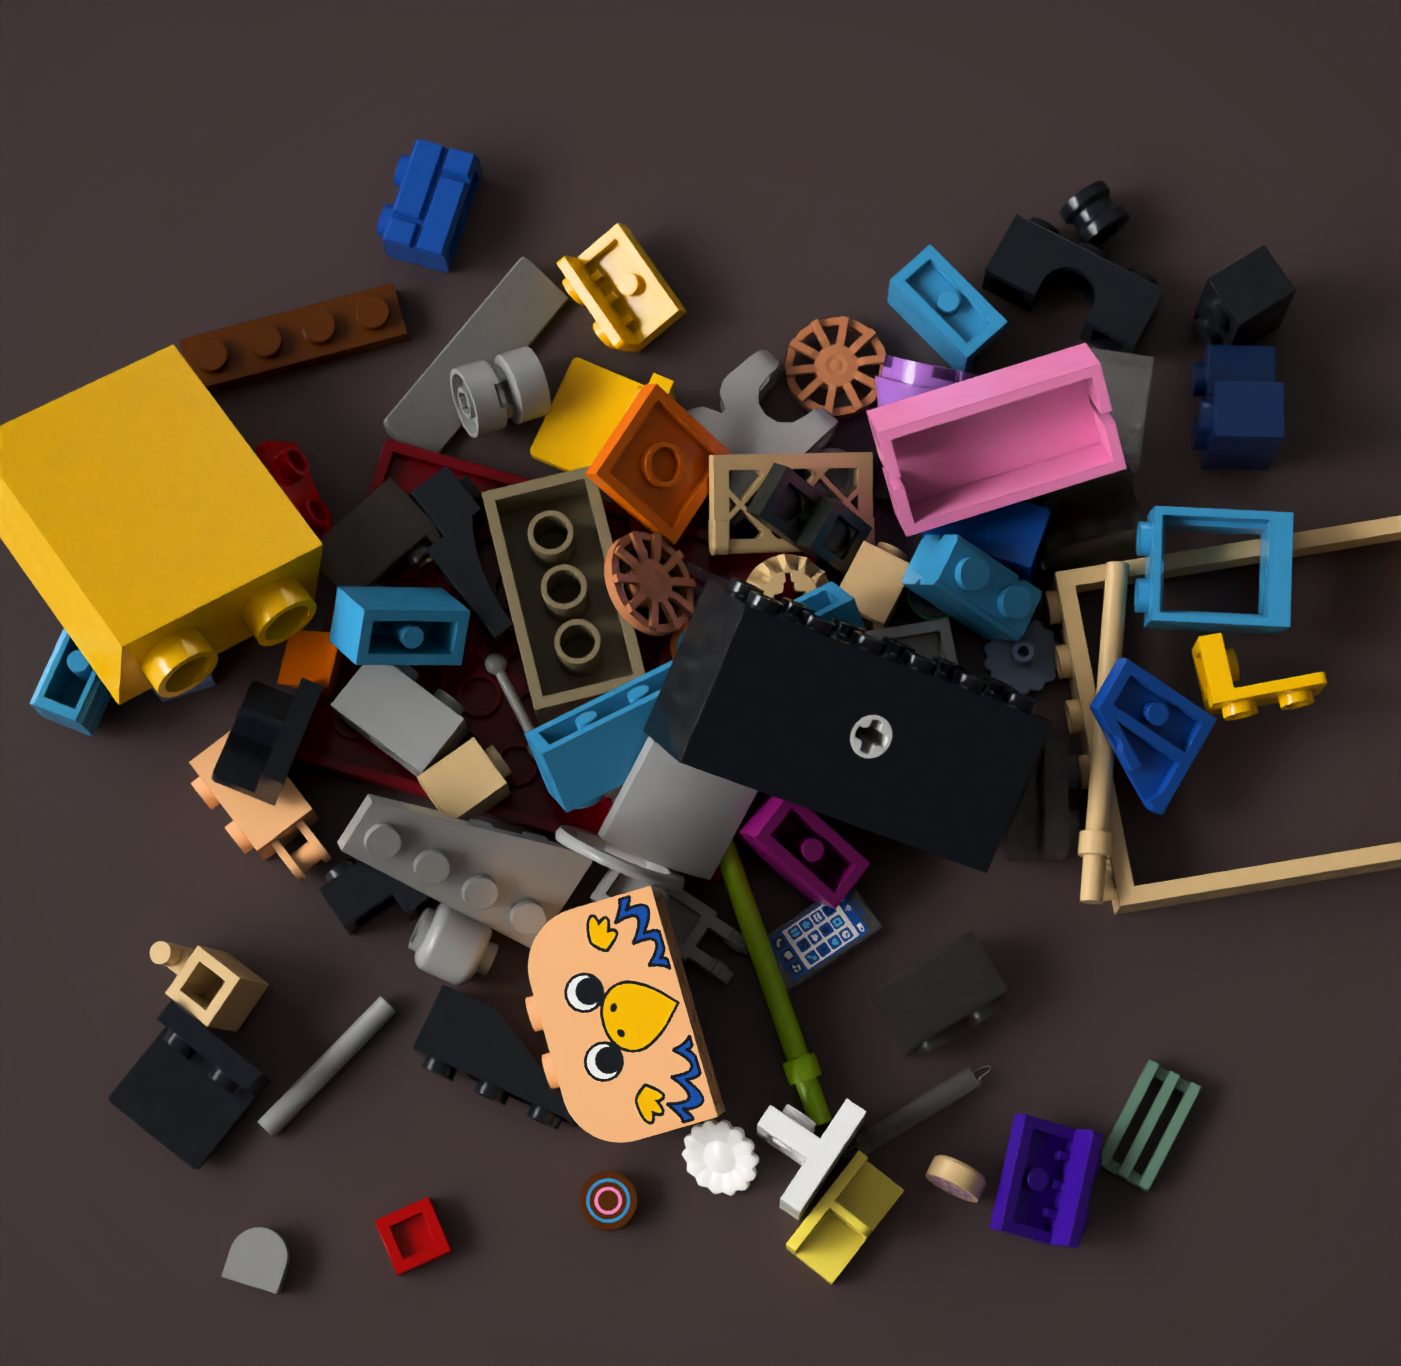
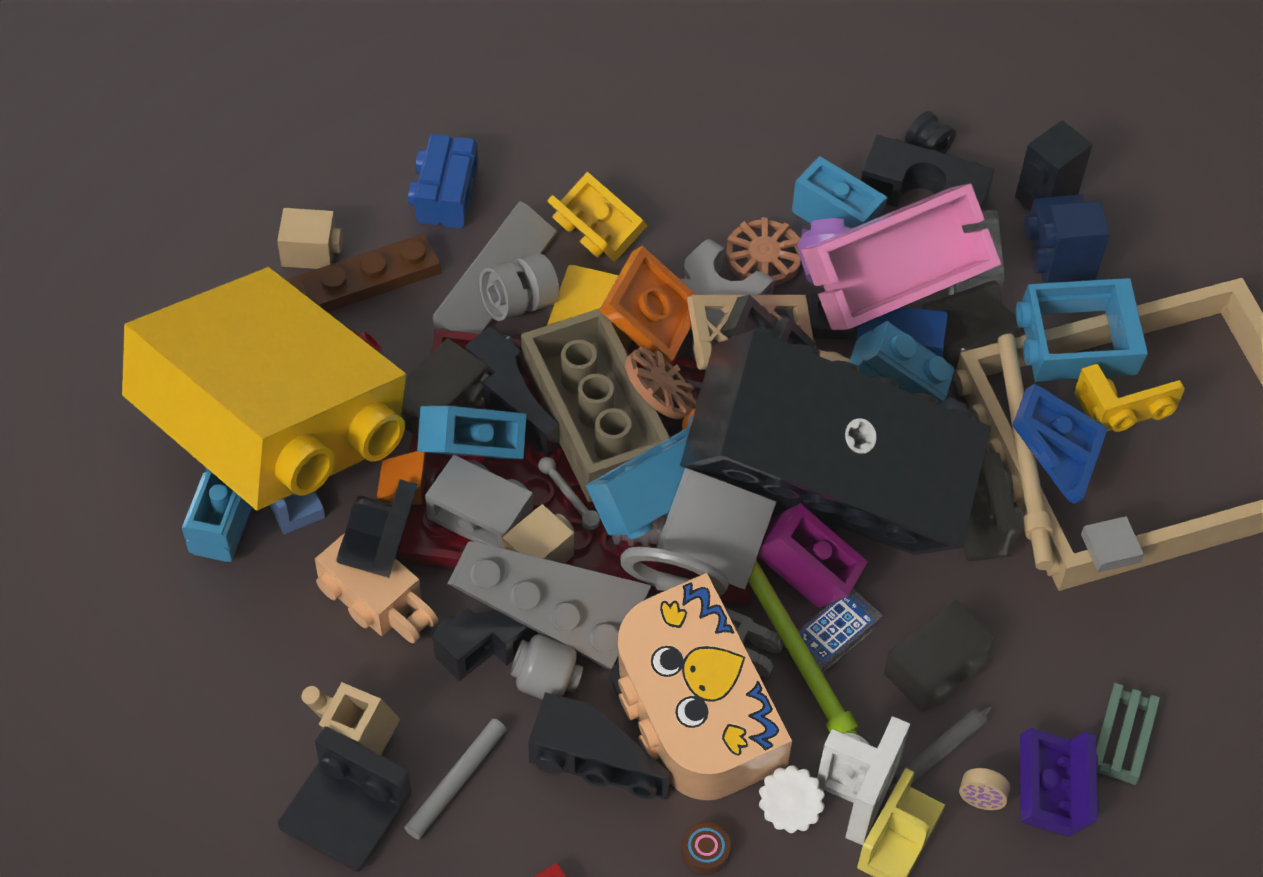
camera: 15 degrees left, 20 degrees down
(240, 275) = (308, 238): none -> tan brick
(1183, 884) = (1112, 544): none -> light grey tile

